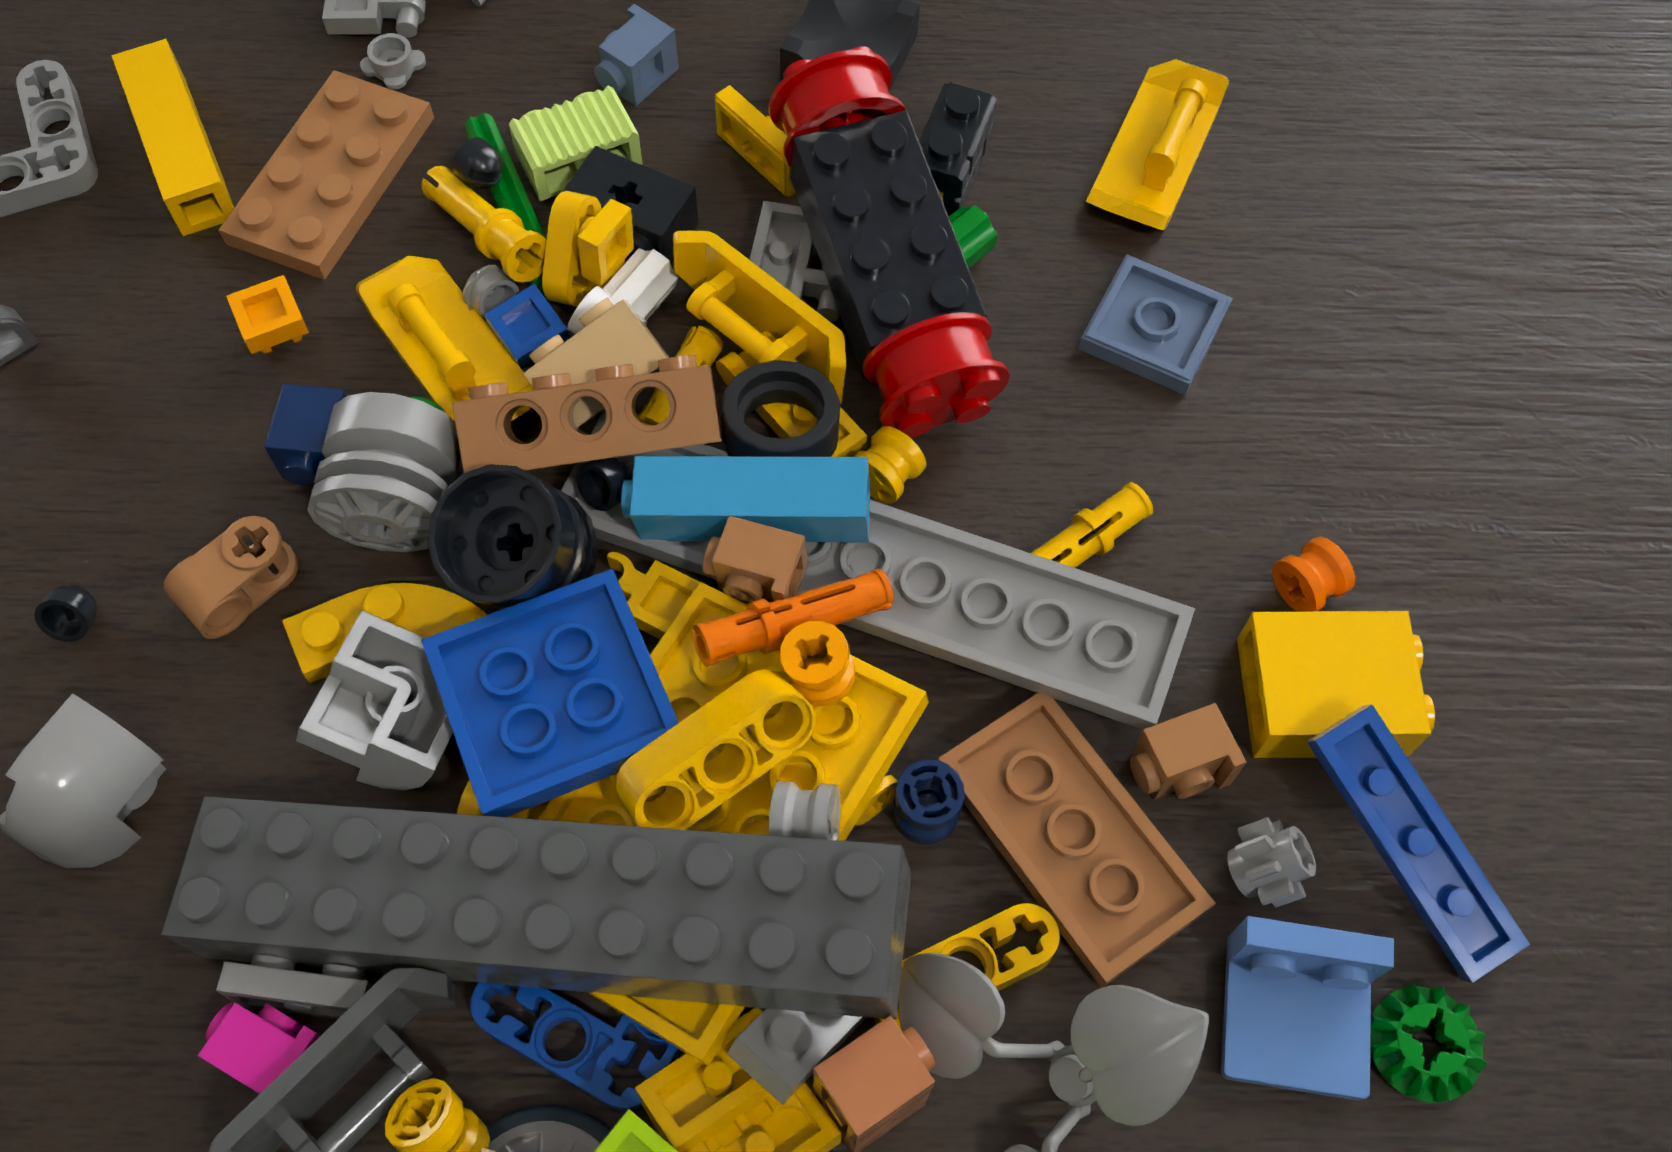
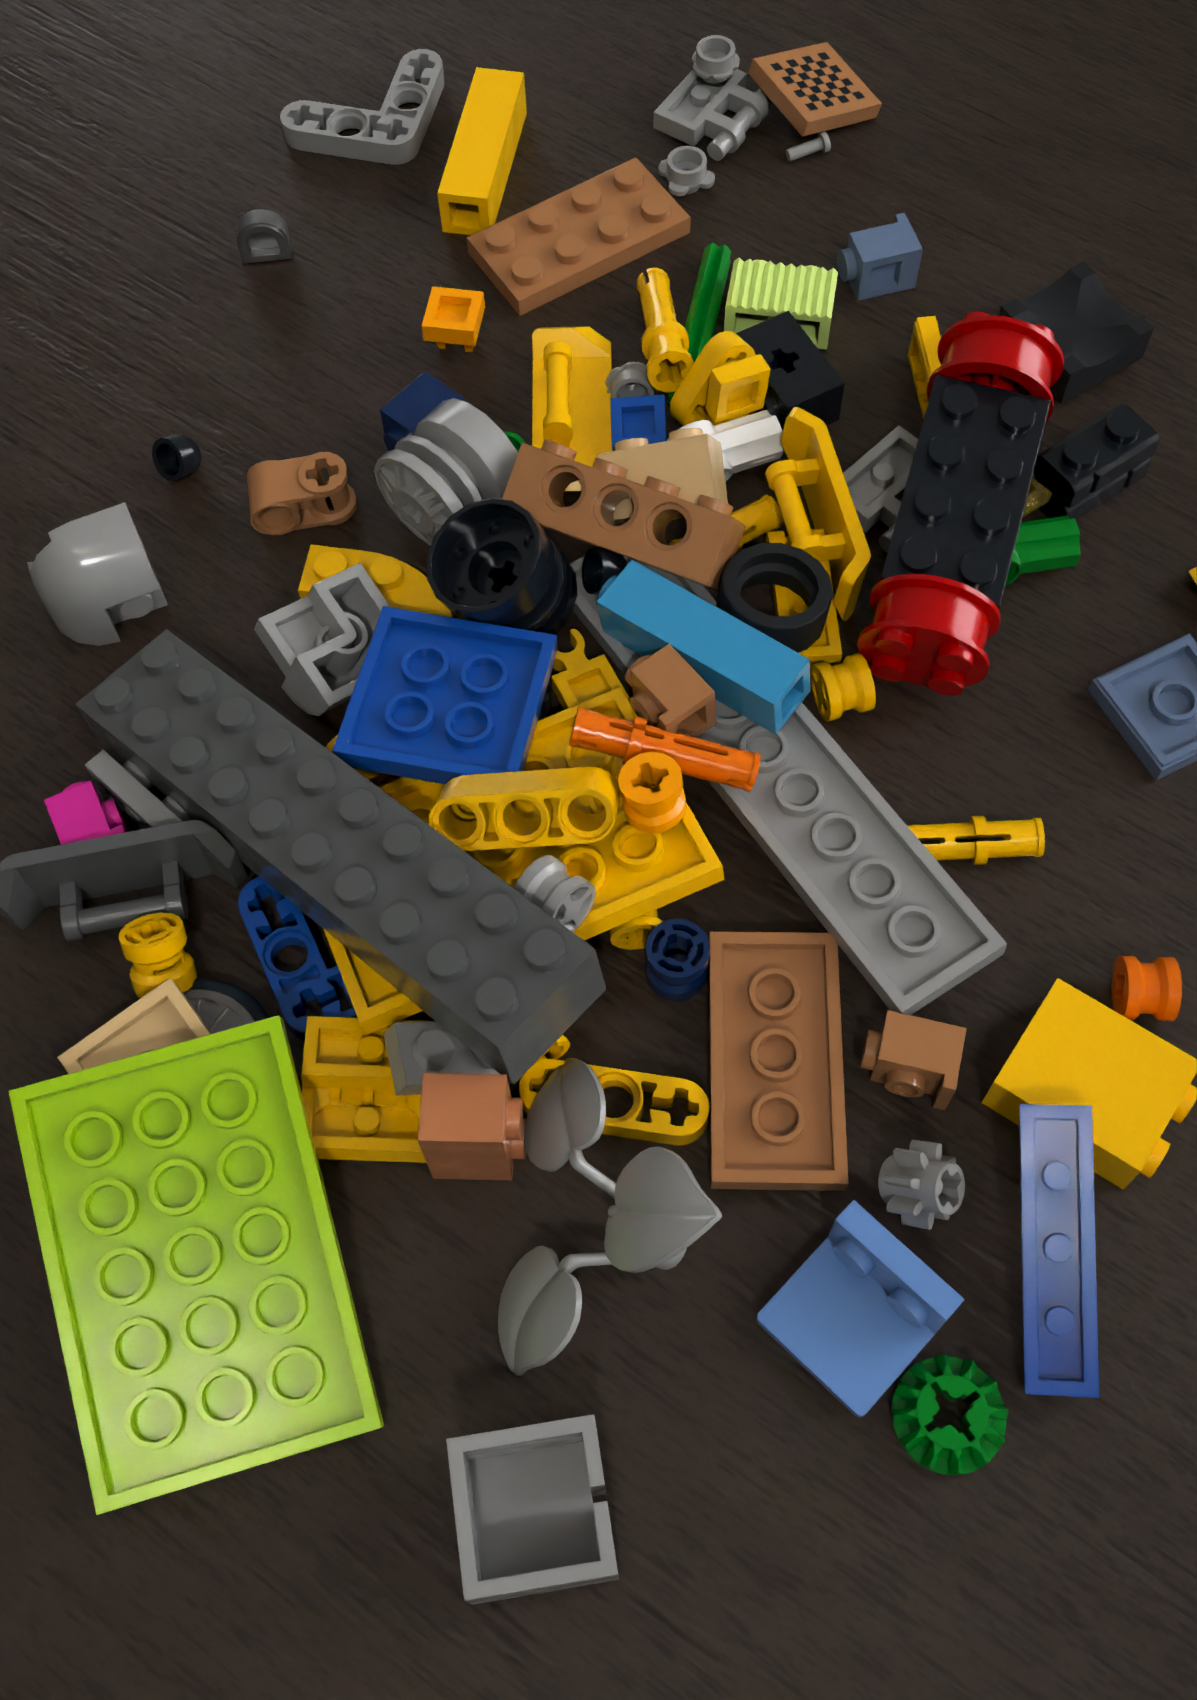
camera: 40 degrees right, 0 degrees up
(478, 164) = (692, 276): black hinge -> none

